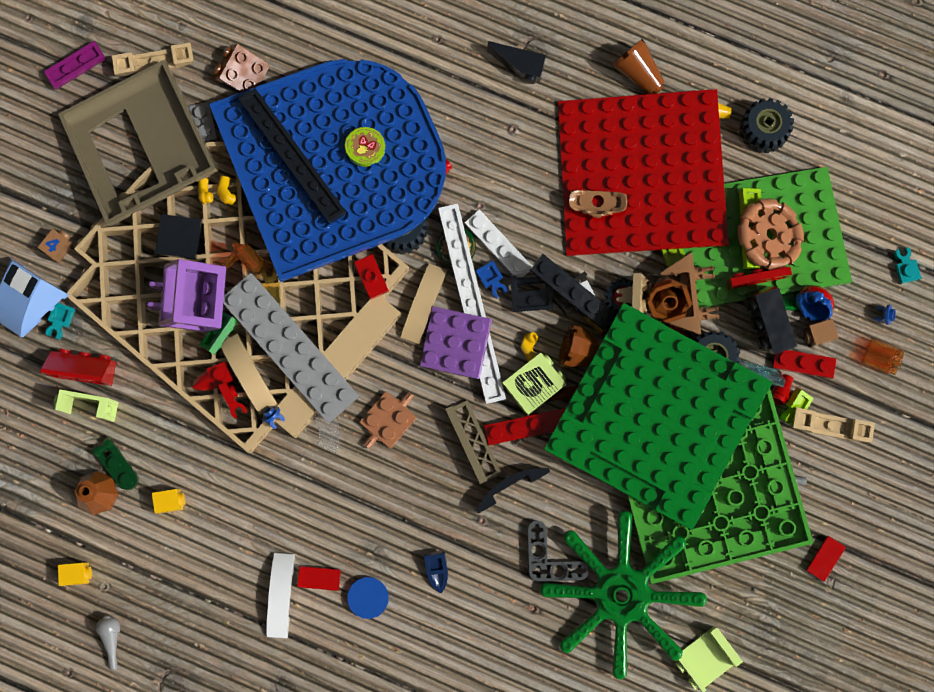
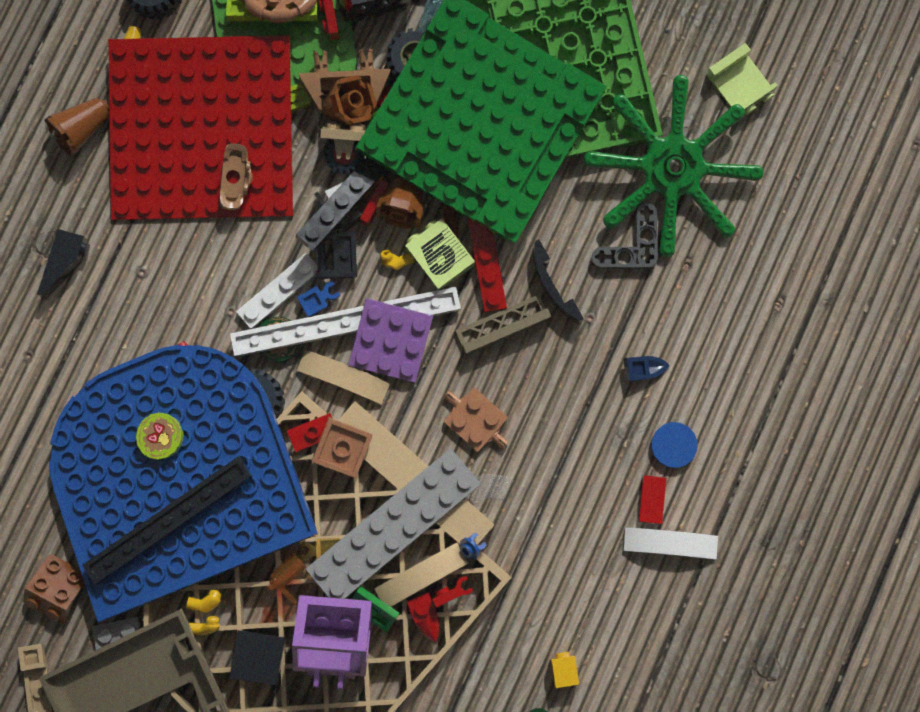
camera: 90 degrees left, 0 degrees up
(357, 301) = (342, 447): none -> nougat plate
(569, 320) = (370, 210): none -> red tile

